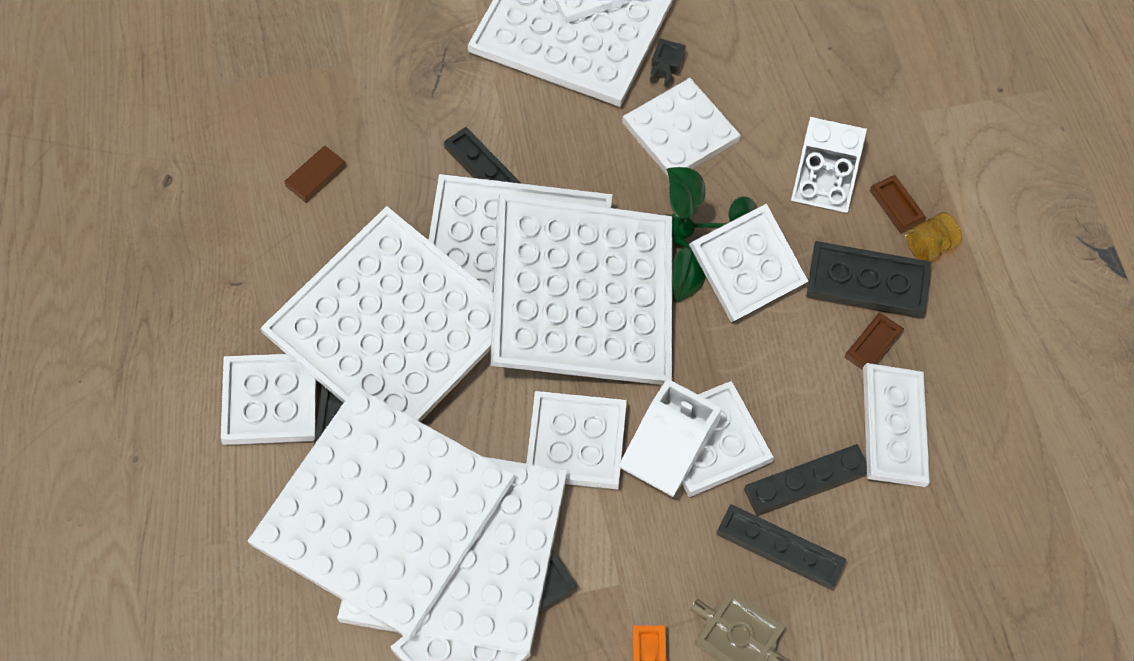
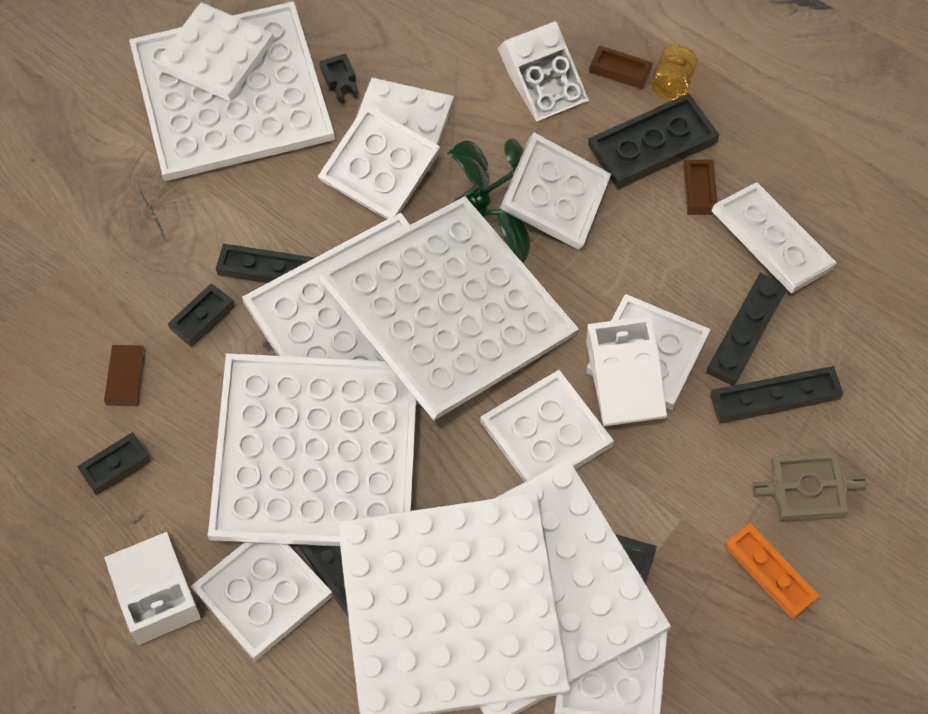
camera: 35 degrees left, 0 degrees up
(196, 338) = (151, 589): none -> white slope
(251, 231) = (114, 463): none -> pearl dark grey plate
(405, 168) = (201, 314): none -> pearl dark grey plate
(632, 146) = (379, 163): none -> white plate

